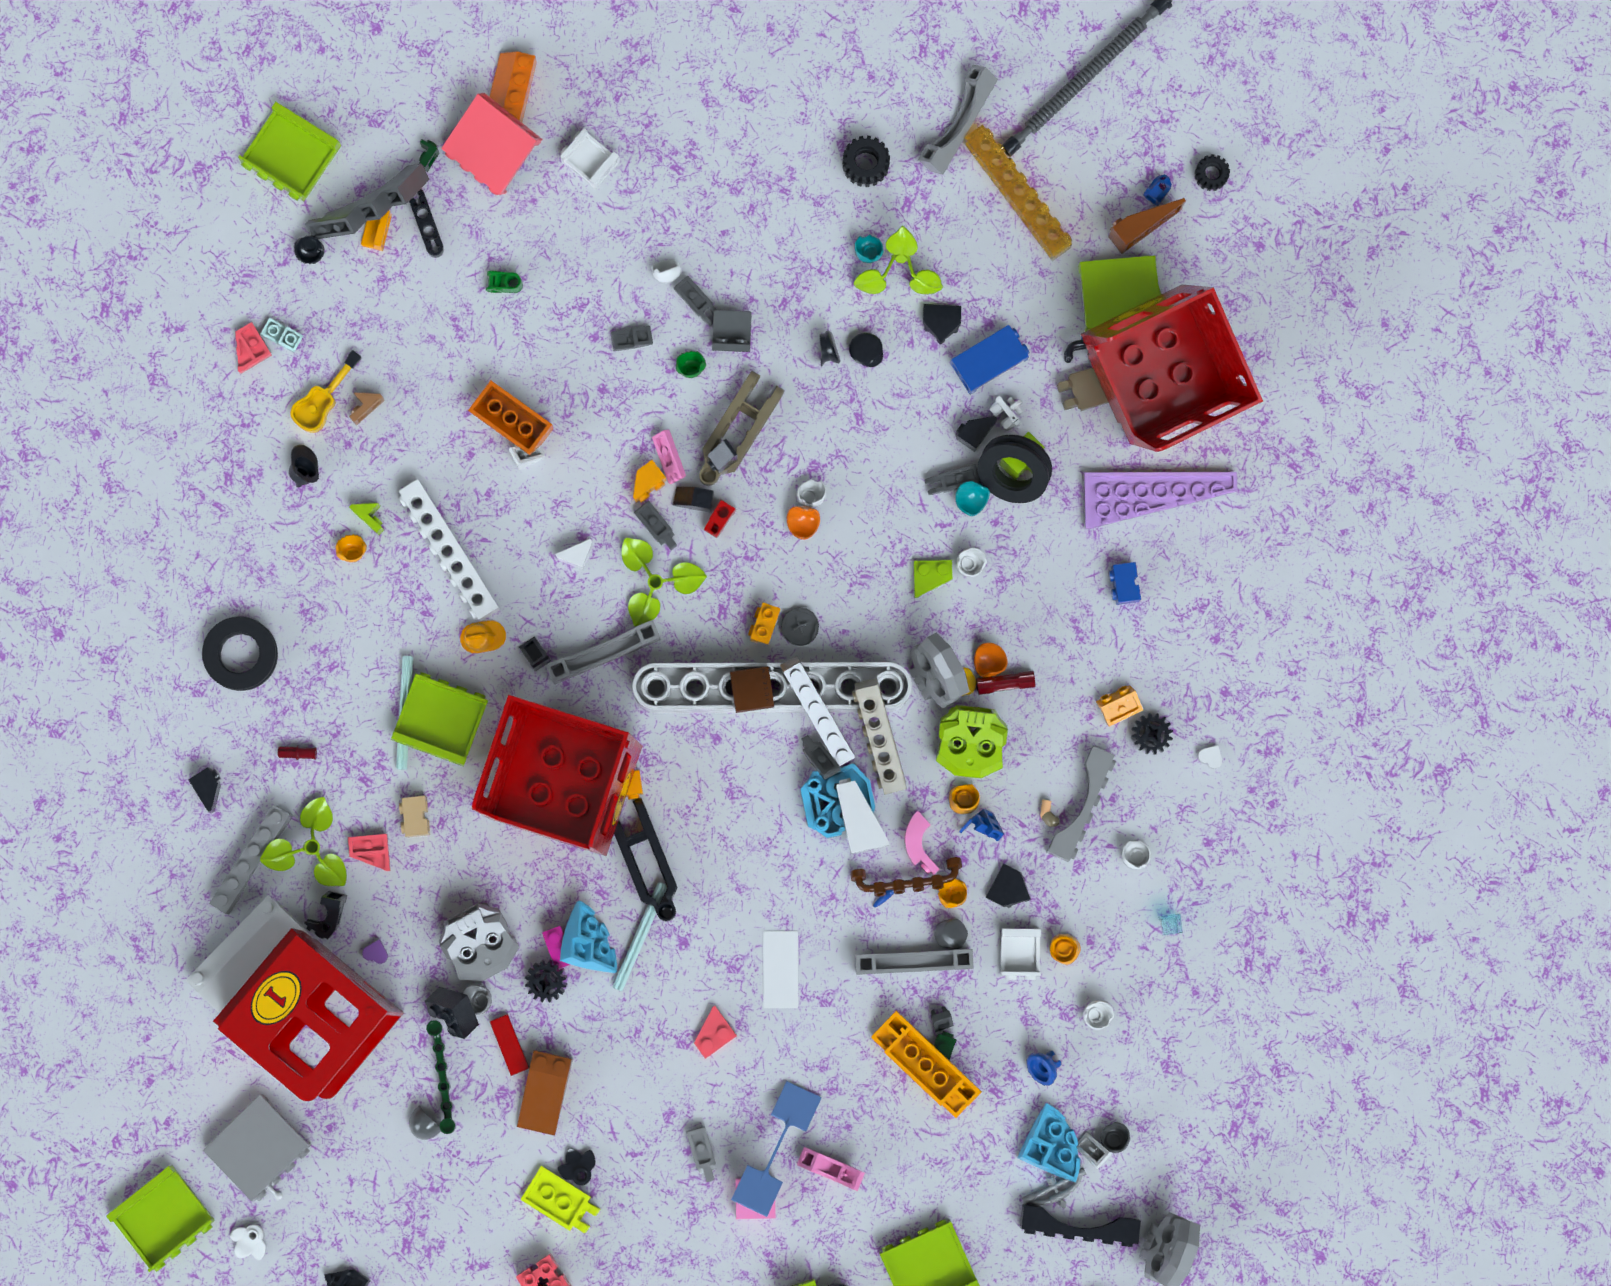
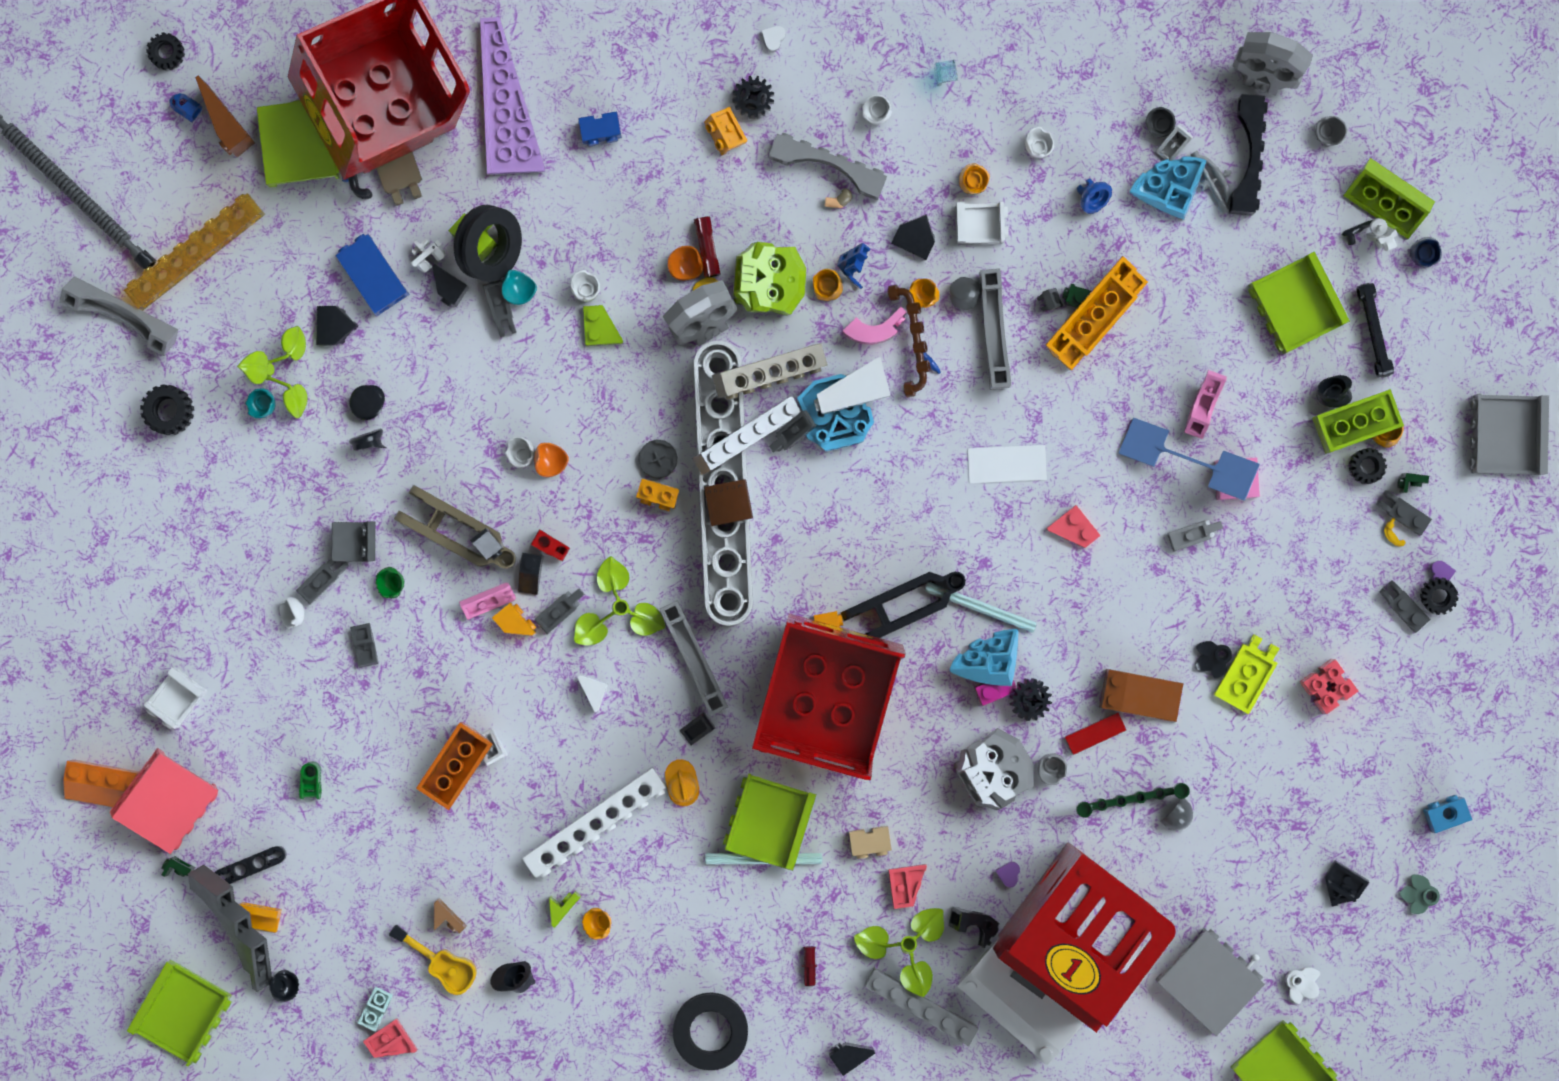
camera: 90 degrees left, 5 degrees up
(454, 1010) = (1065, 790): black brick -> none

